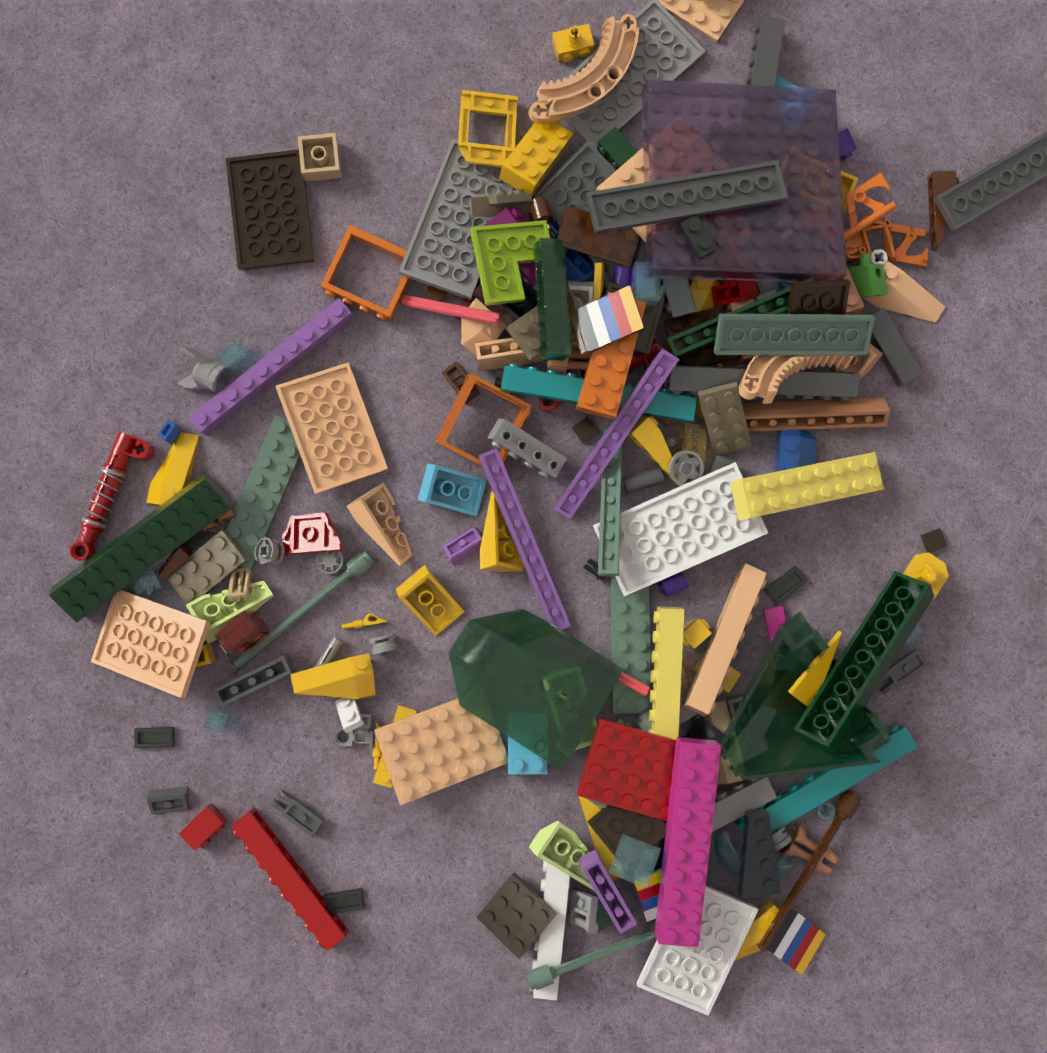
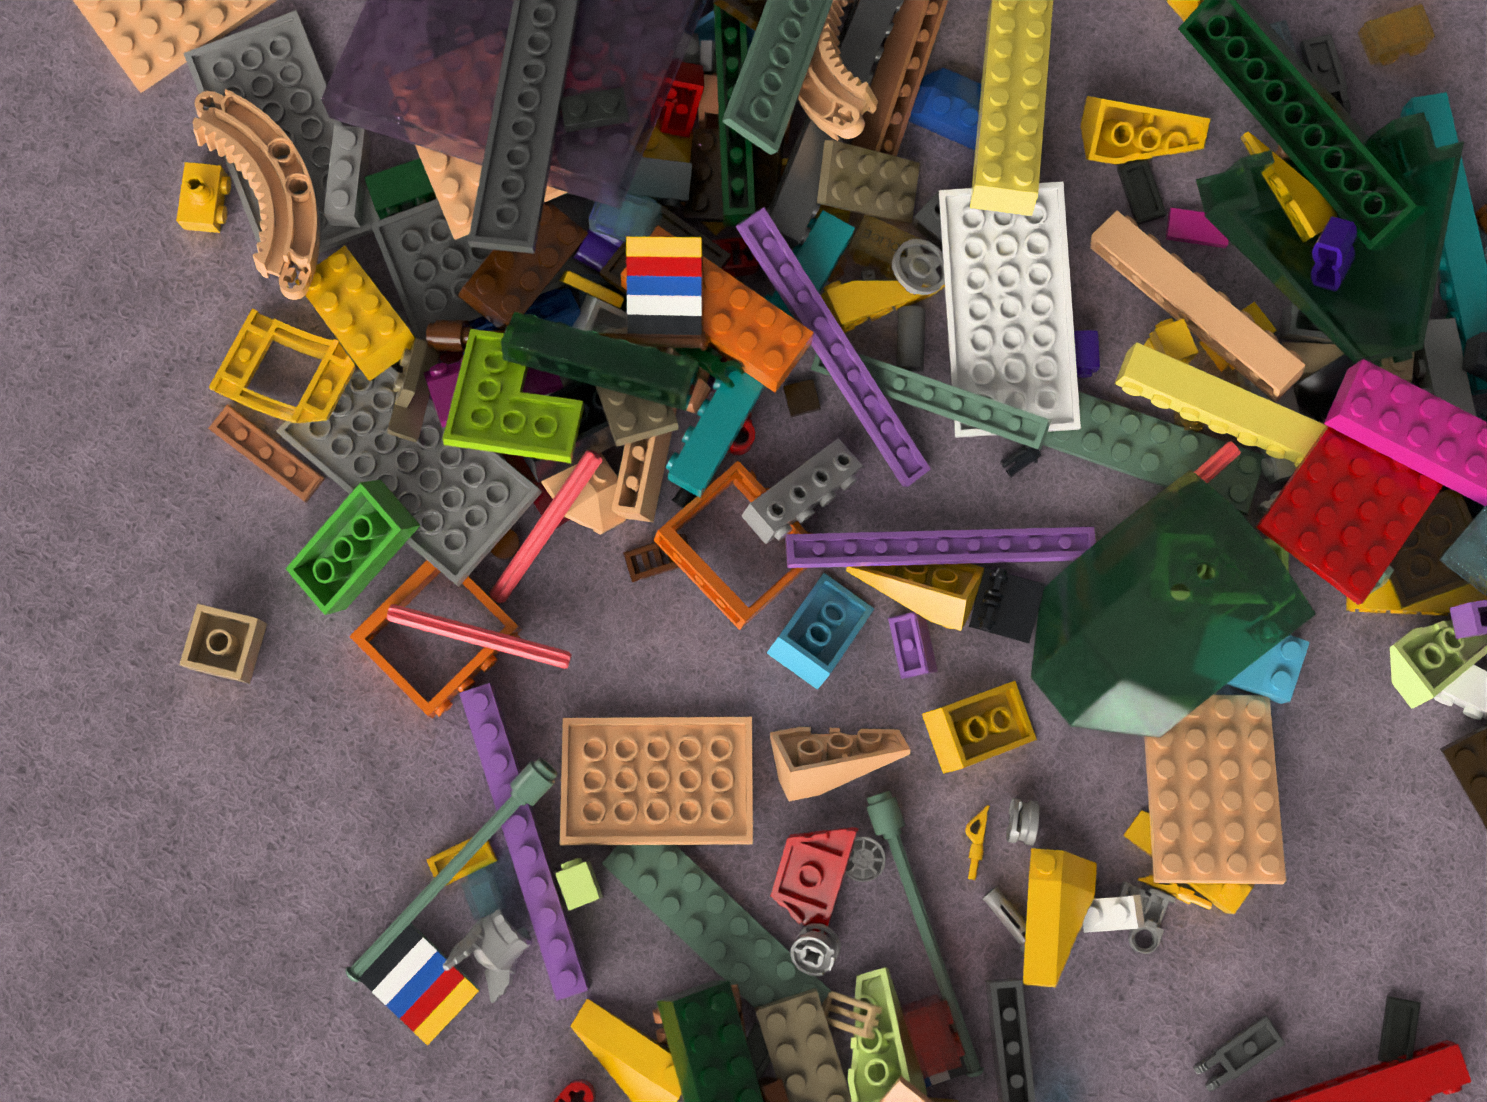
camera: 70 degrees left, 5 degrees down
(169, 431) = (565, 1042): blue plate -> none
(180, 327) = (405, 965): none -> flag
(250, 337) = (483, 858): none -> yellow tile
(257, 405) = (578, 883): none -> yellowish green brick
(269, 210) = (272, 755): dark brown plate -> none
(375, 299) = (479, 636): none -> coral axle
(399, 205) = (352, 546): none -> bright green brick
(438, 139) = (266, 453): none -> nougat tile
(506, 591) = (1007, 605): none -> black hinge
(579, 364) = (710, 362): none -> dark green plate
(622, 115) = (346, 176): none -> light grey brick
(784, 709) = (1333, 253): none -> dark purple brick
(820, 565) = (1129, 132): none -> yellow wedge
(943, 705) = (1396, 35): none -> clear yellow brick

